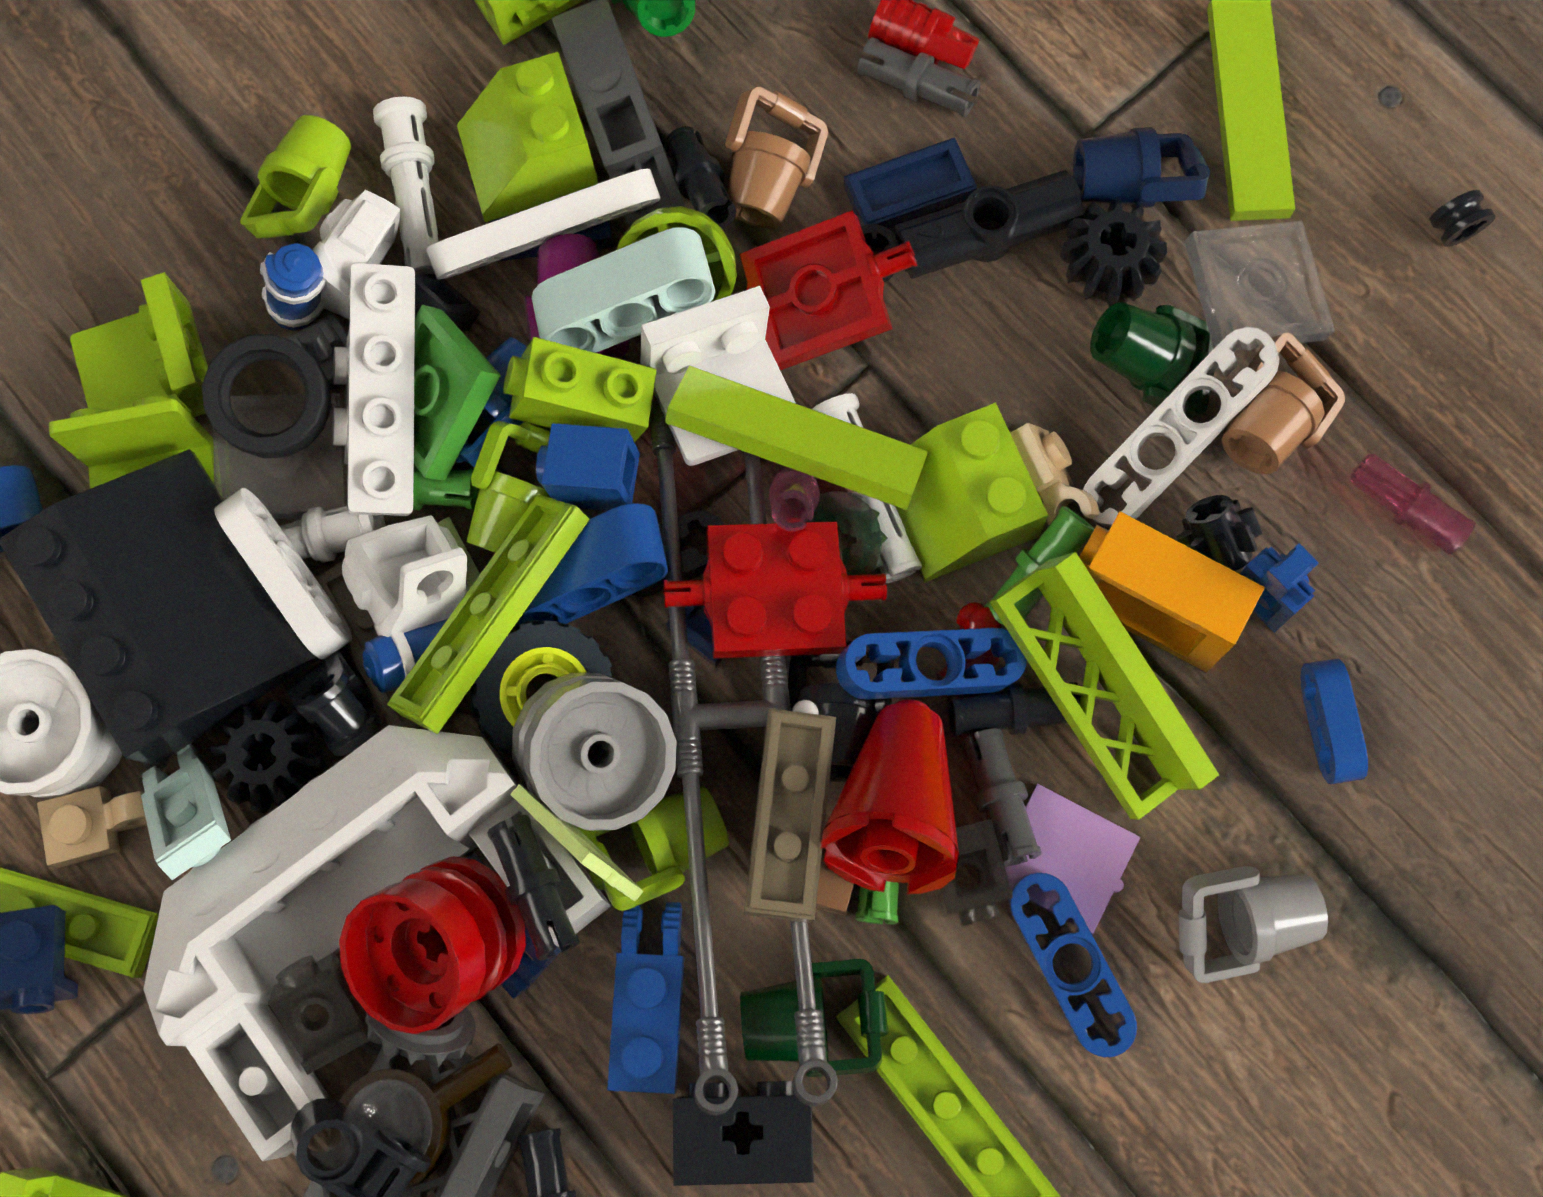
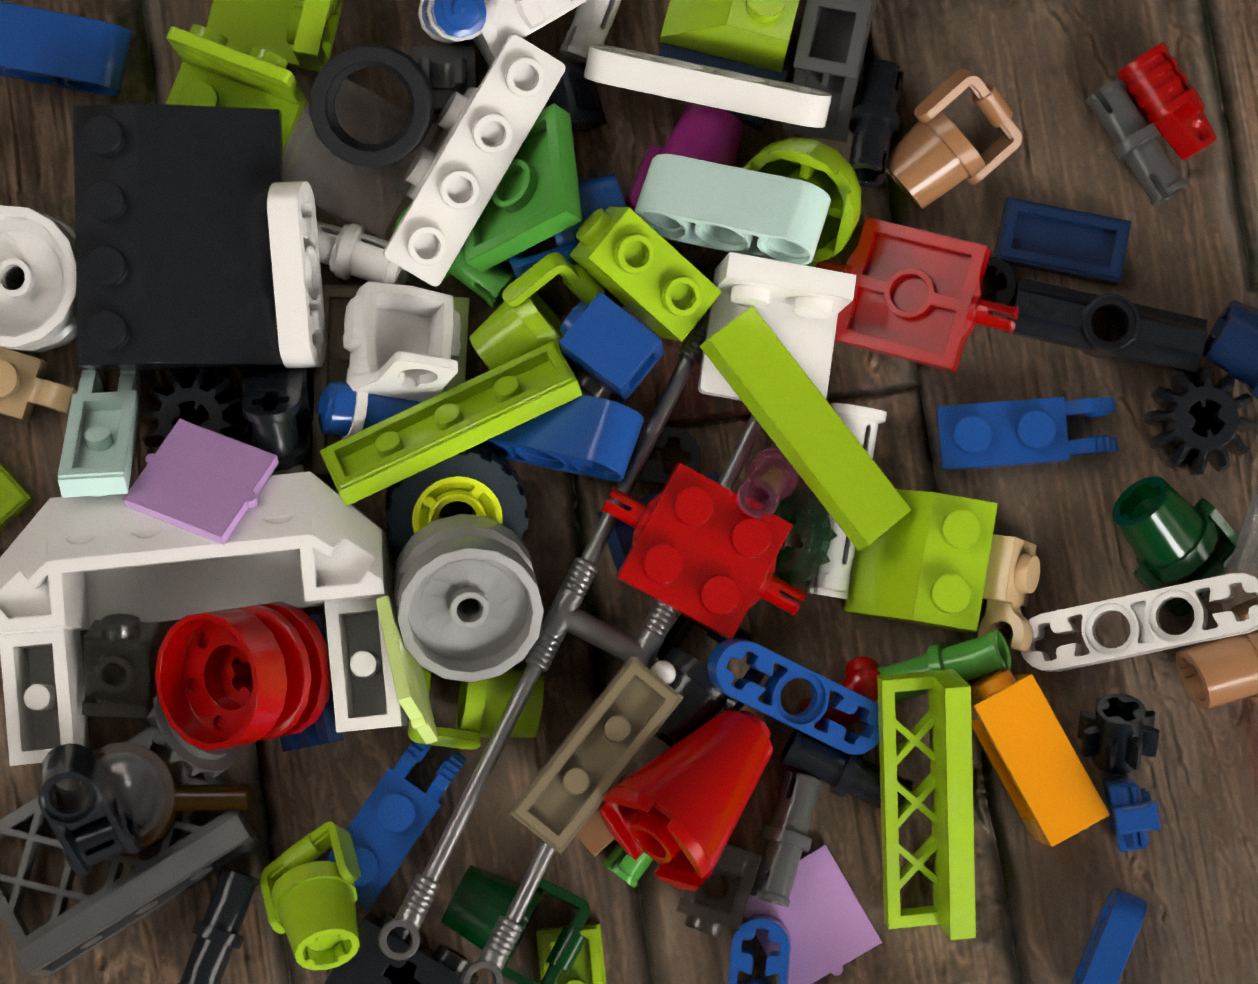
camera: 30 degrees right, 10 degrees up
(294, 792) = (201, 481): none -> lavender piece
(533, 887) = (350, 684): black pin -> none
(619, 1109) = (315, 898): none -> lime piece
(974, 350) = (1017, 432): none -> blue hinge

